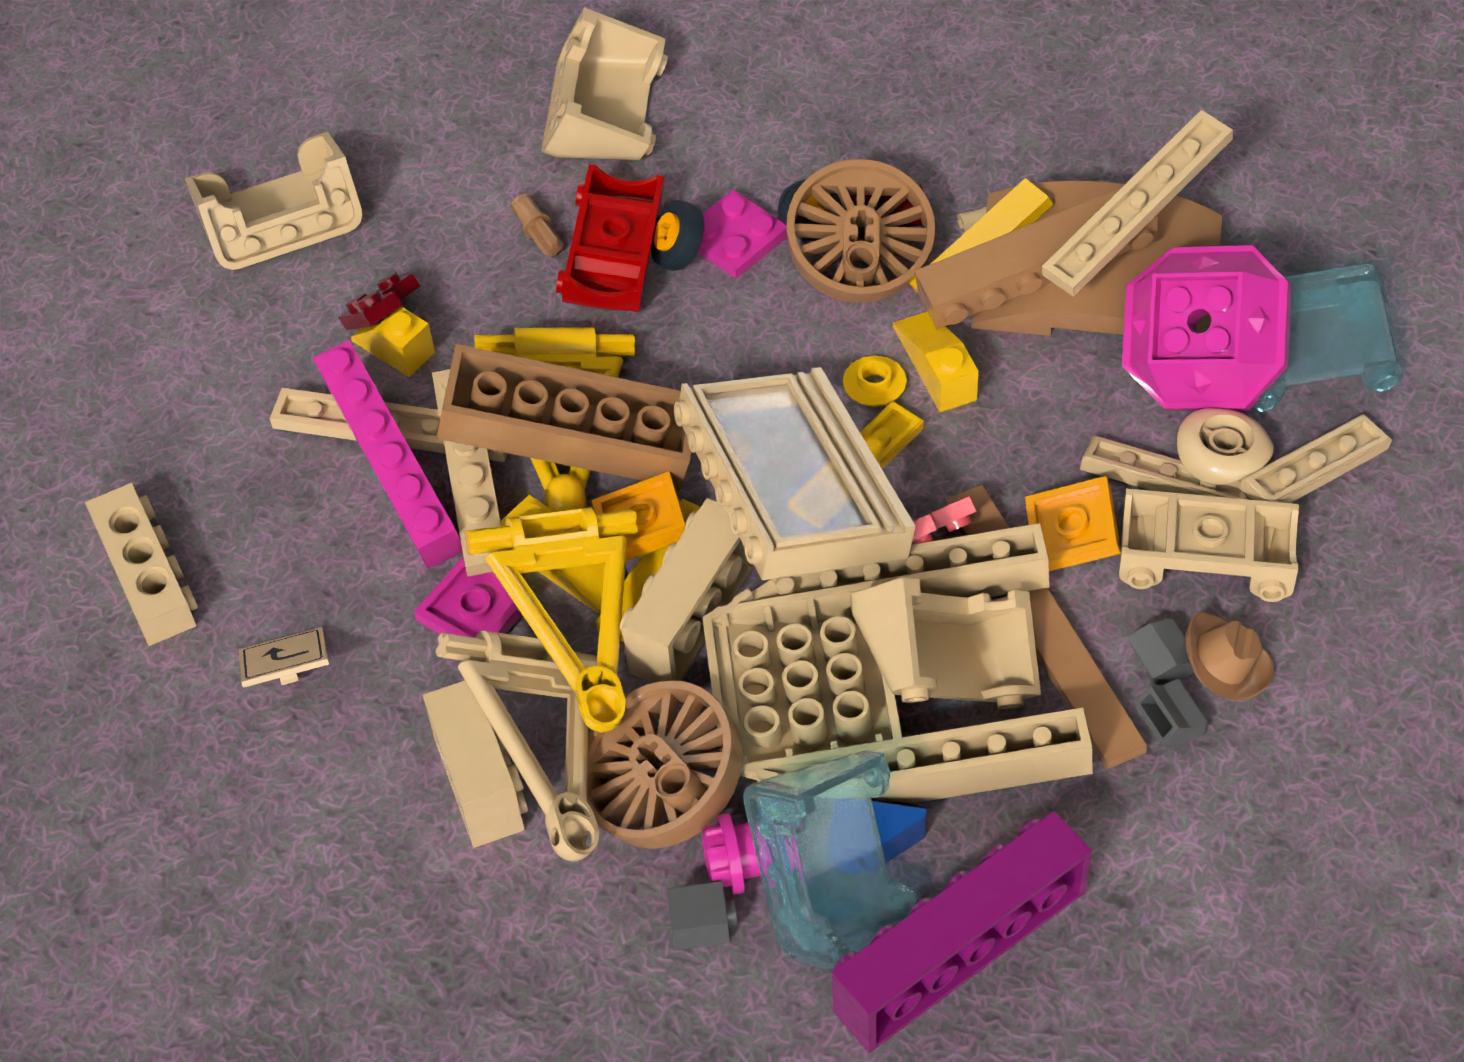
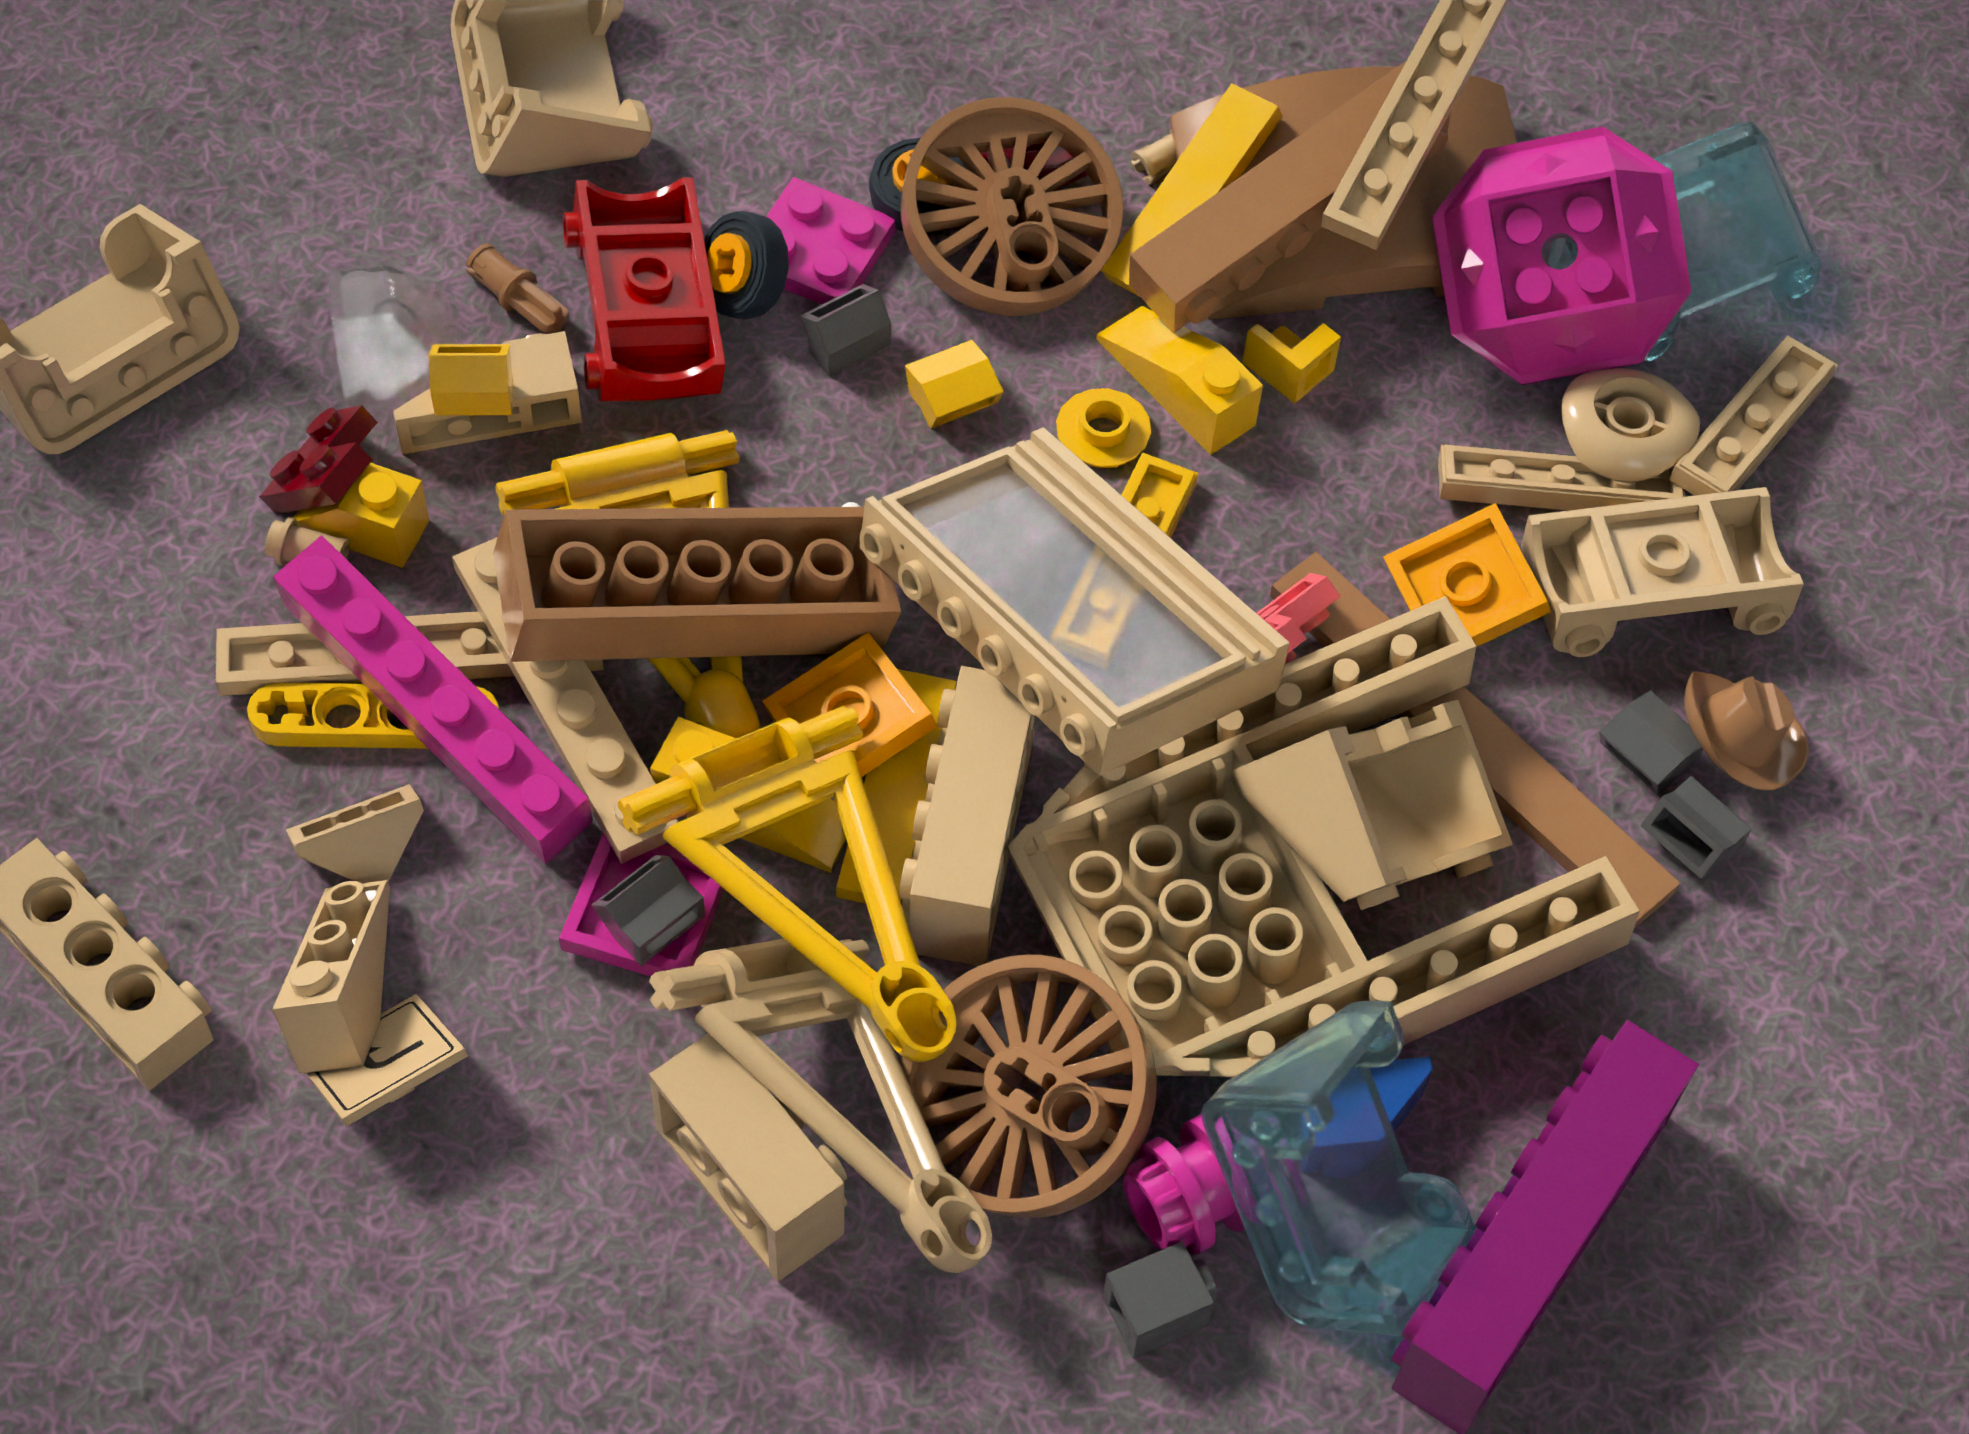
camera: 25 degrees left, 5 degrees up
(273, 607) = (336, 980): none -> tan slope
(321, 530) = (363, 838): none -> tan slope
(326, 443) = (369, 731): none -> yellow beam
(368, 356) = (288, 540): none -> tan pin
(451, 239) = (385, 333): none -> clear slope
(472, 606) = (650, 908): none -> dark grey piece
(478, 269) = (471, 379): none -> yellow piece
(498, 285) = (542, 399): none -> tan slope
(731, 288) = (847, 328): none -> dark grey piece
(786, 334) = (953, 383): none -> yellow piece
(1014, 363) = (1288, 361): none -> yellow panel

